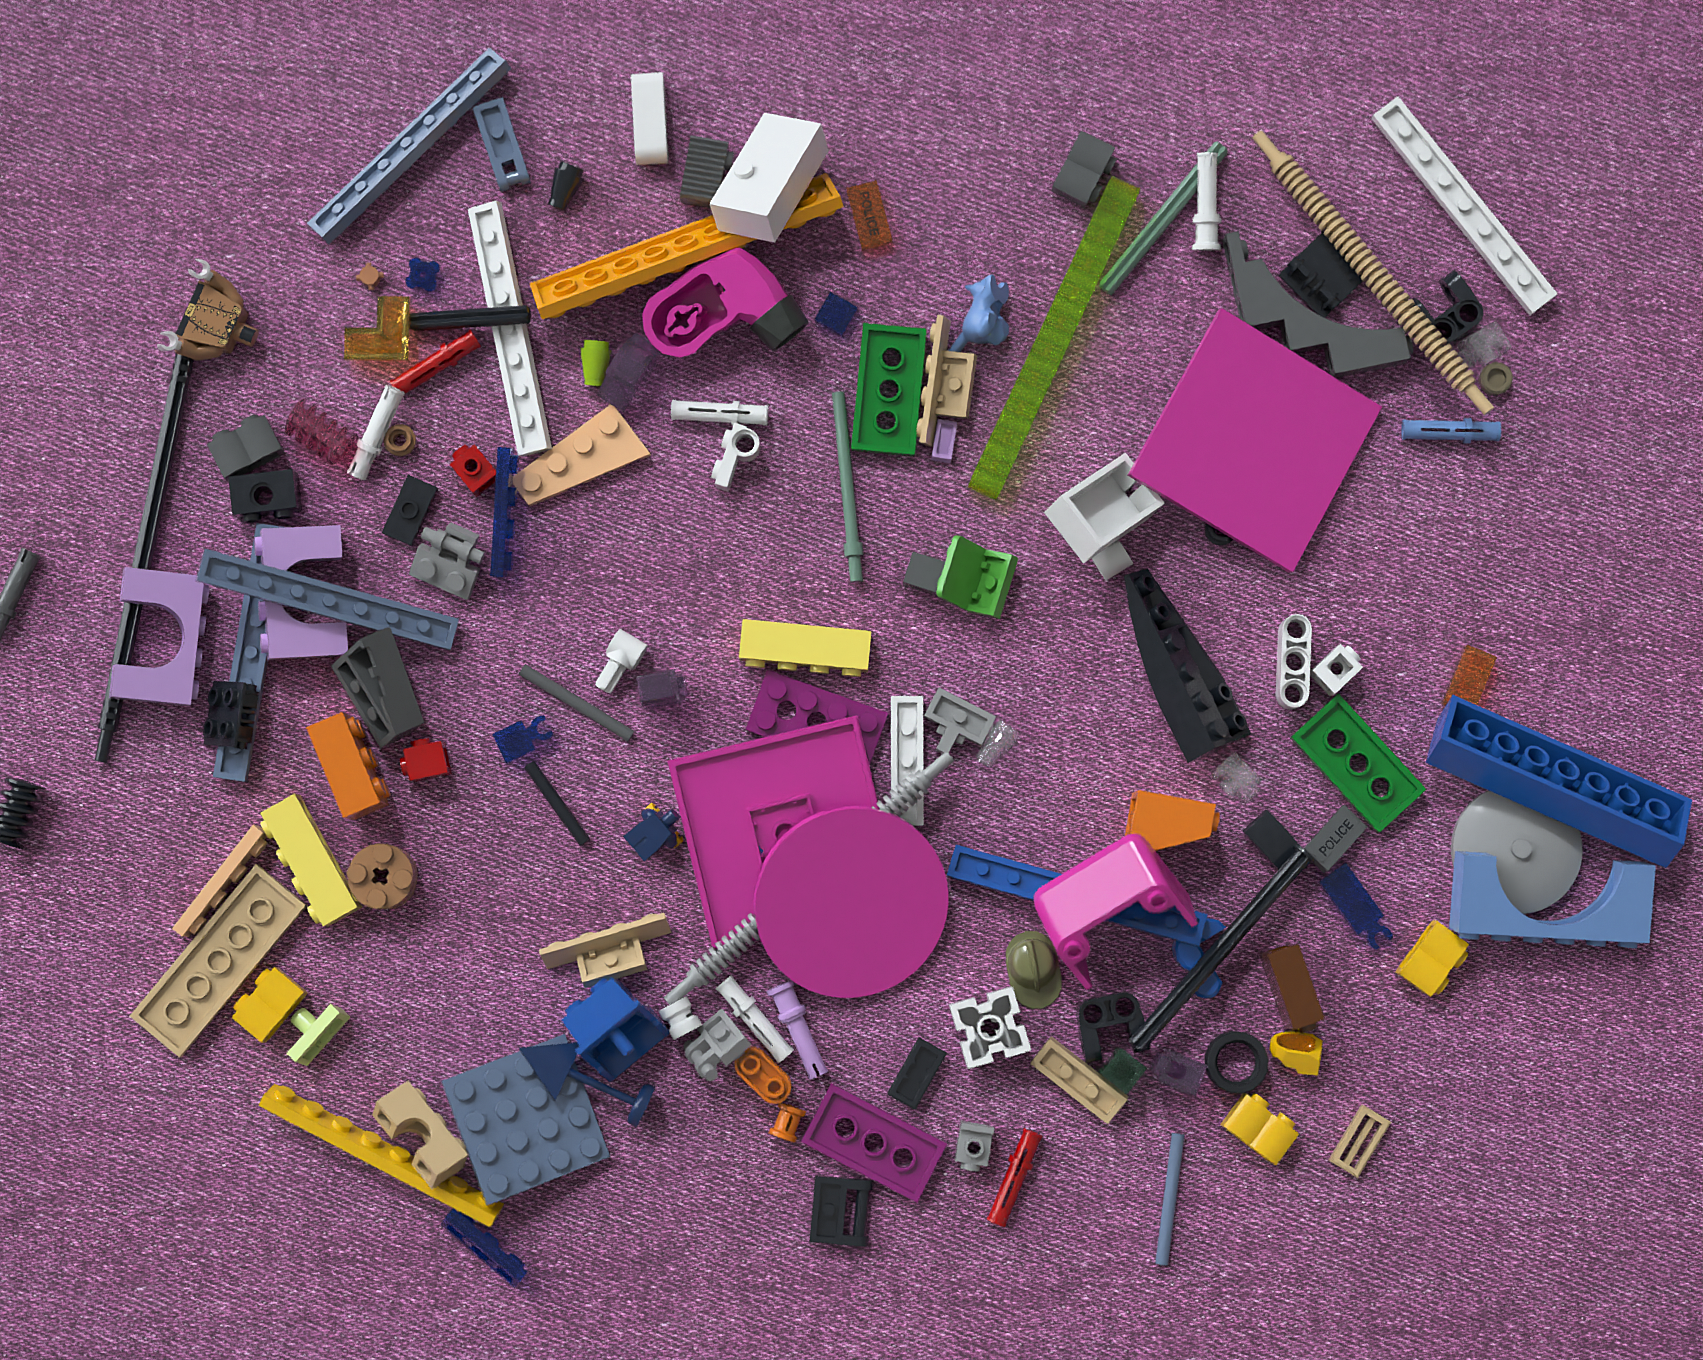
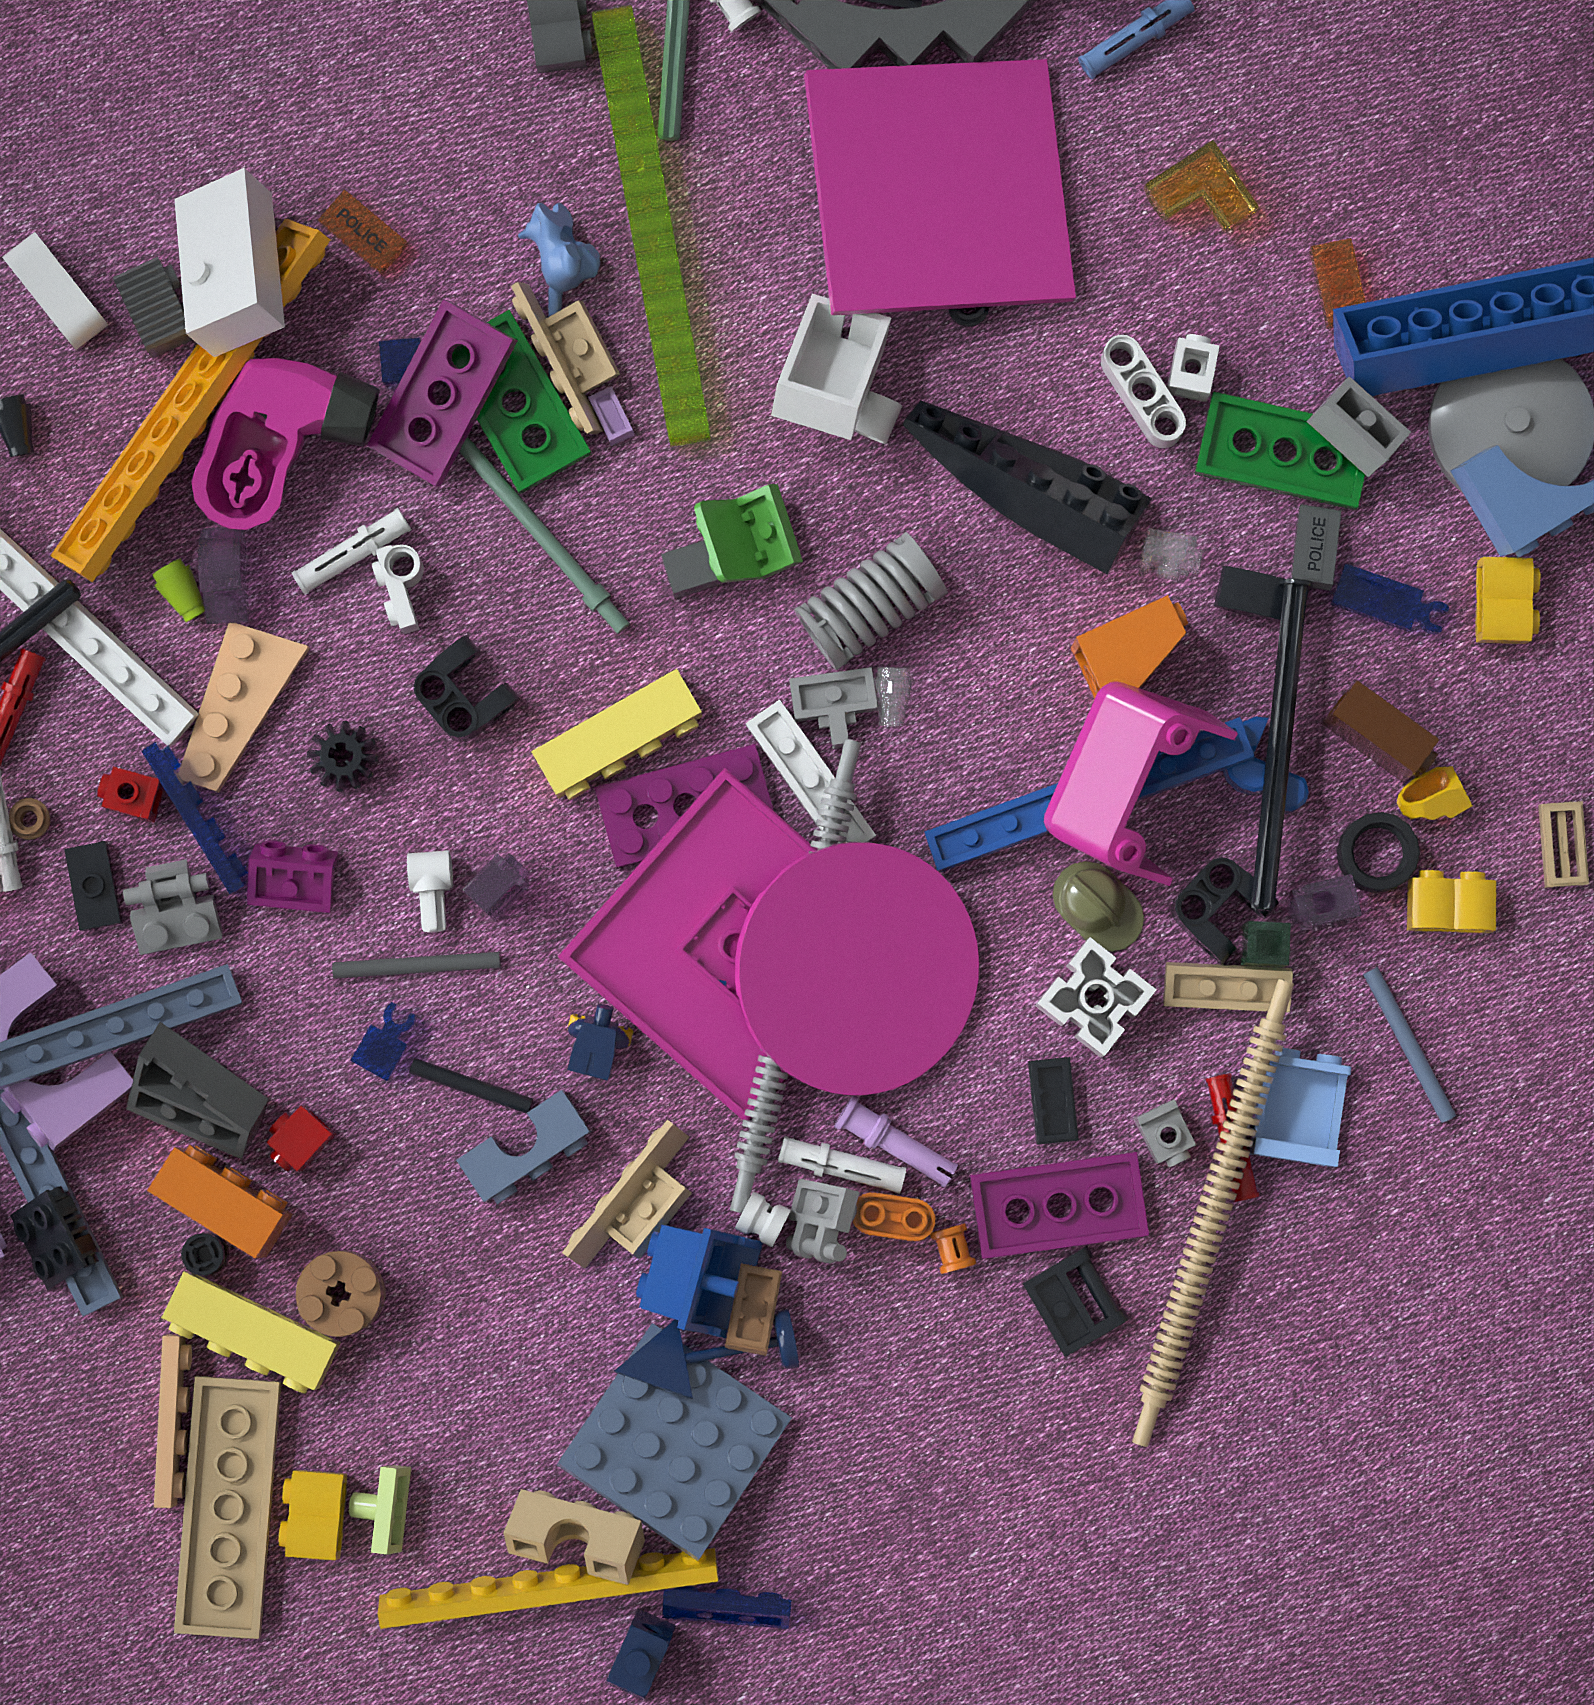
camera: 35 degrees left, 0 degrees up
(321, 792) = (212, 1254): none -> black wheel
(410, 1238) = (640, 1654): none -> dark blue torso
(534, 868) = (558, 1131): none -> sand blue arch
(537, 592) = (291, 876): none -> magenta bracket
(611, 541) = (353, 746): none -> black gear
(633, 1071) = (753, 1309): none -> medium nougat plate
(717, 552) = (444, 668): none -> black piece
(864, 363) = (469, 391): none -> magenta plate
(878, 1286) = (1155, 1395): none -> tan hose
(1023, 668) = (862, 588): none -> light grey piece
(1070, 1189) = (1302, 1109): none -> light blue panel
(1415, 782) = (1358, 426): none -> light grey brick
(1432, 554) = (1204, 176): none -> clear yellow brick

